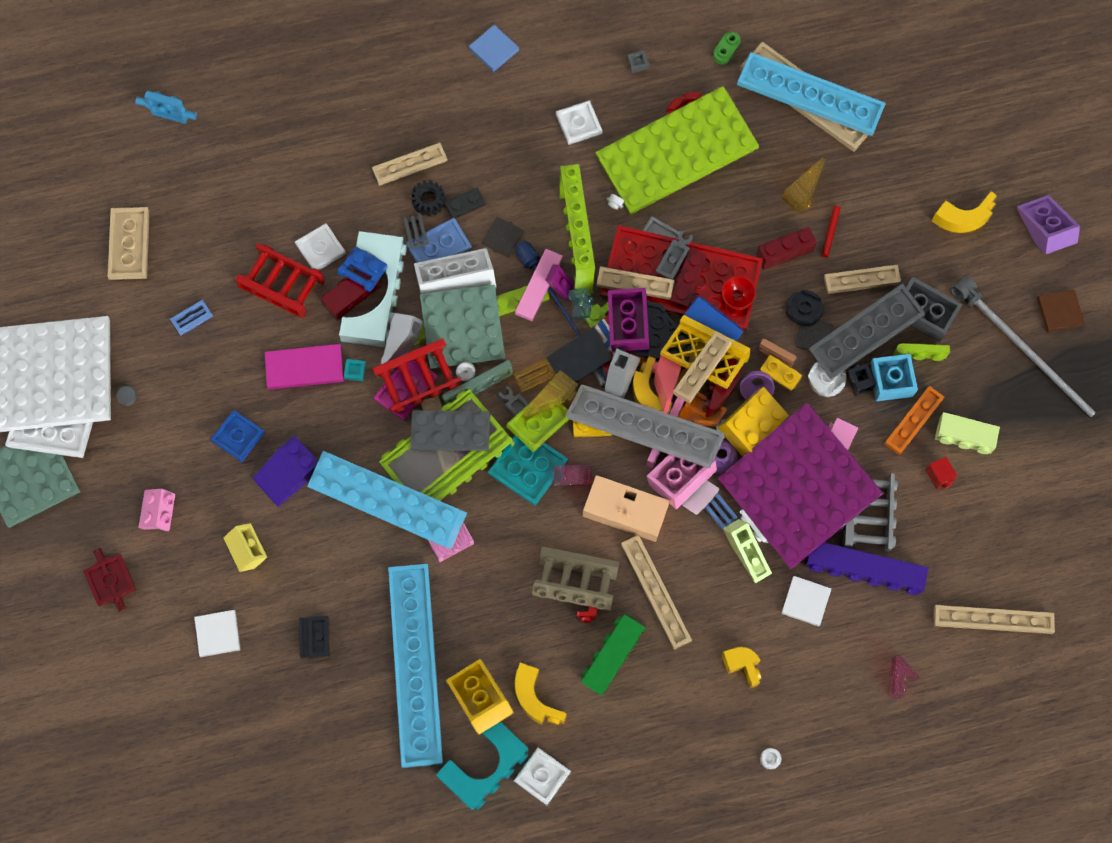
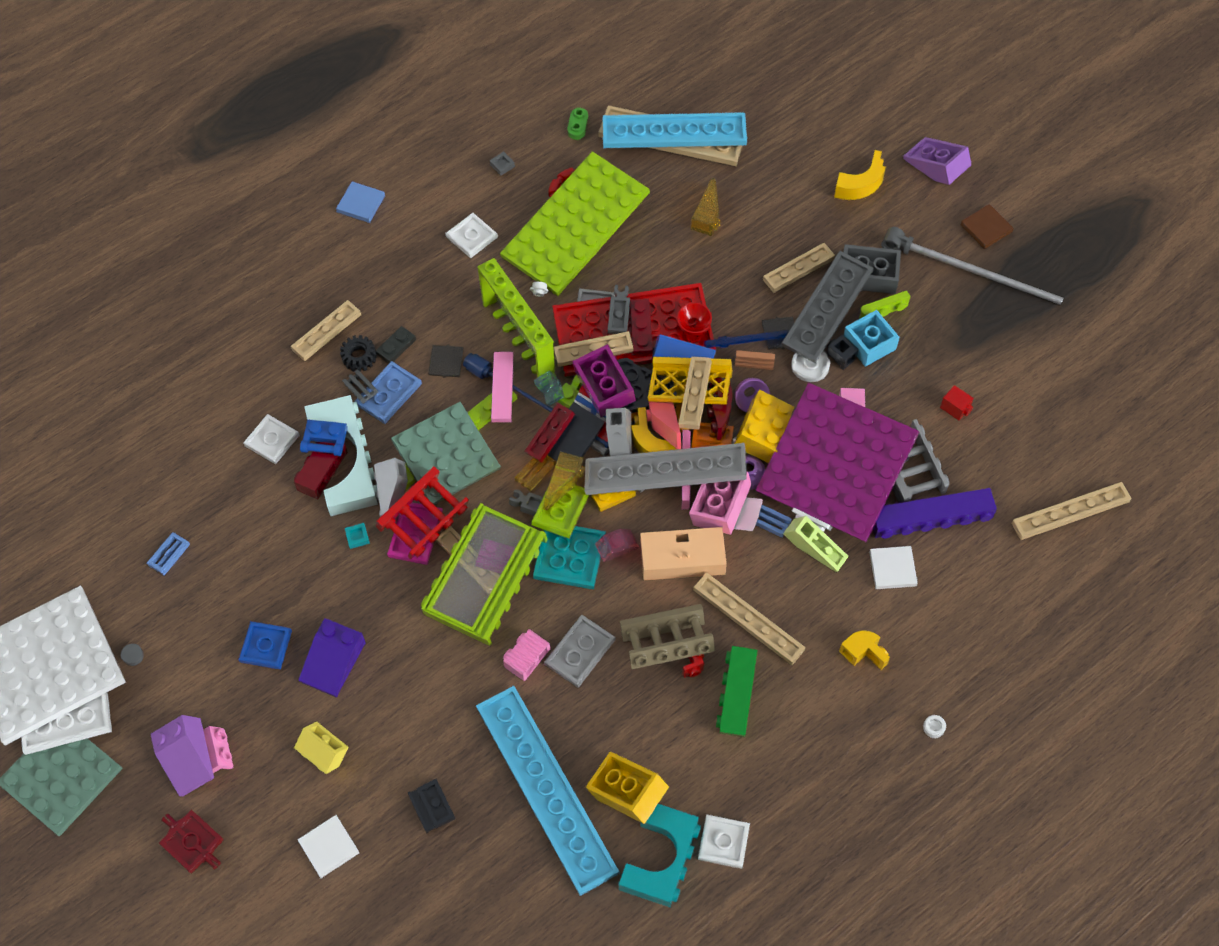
camera: 20 degrees left, 10 degrees down
(128, 243) = (73, 509): tan plate -> none
(132, 503) = (183, 753): none -> medium lavender slope
(166, 107) = (59, 368): dark azure plate -> none
(279, 298) = (250, 500): red fence -> none
(304, 366) = (304, 553): dark pink tile -> none
(387, 500) = (446, 639): medium azure brick -> none
(450, 430) = (480, 548): dark grey plate -> none
(455, 272) = (415, 407): white slope -> none
(465, 371) = (467, 490): white tile -> none
(481, 382) = (488, 495): sand green tile -> none
(498, 556) = (579, 651): none -> light grey tile
(526, 697) = (676, 773): yellow arch -> none
(559, 347) = (549, 432): none -> dark red plate
(560, 281) = (522, 375): magenta plate -> none
(757, 325) = (724, 341): none -> clear blue bar
(781, 373) = (768, 373): yellow bracket -> none
(786, 248) = (718, 266): dark red brick -> none
(804, 308) = (759, 312): black tile -> none
(831, 230) = (749, 238): red bar -> none
(900, 672) = (1013, 594): clear pink slope -> none
(914, 420) = (908, 368): orange plate -> none
(967, 433) = (961, 359): yellowish green brick -> none

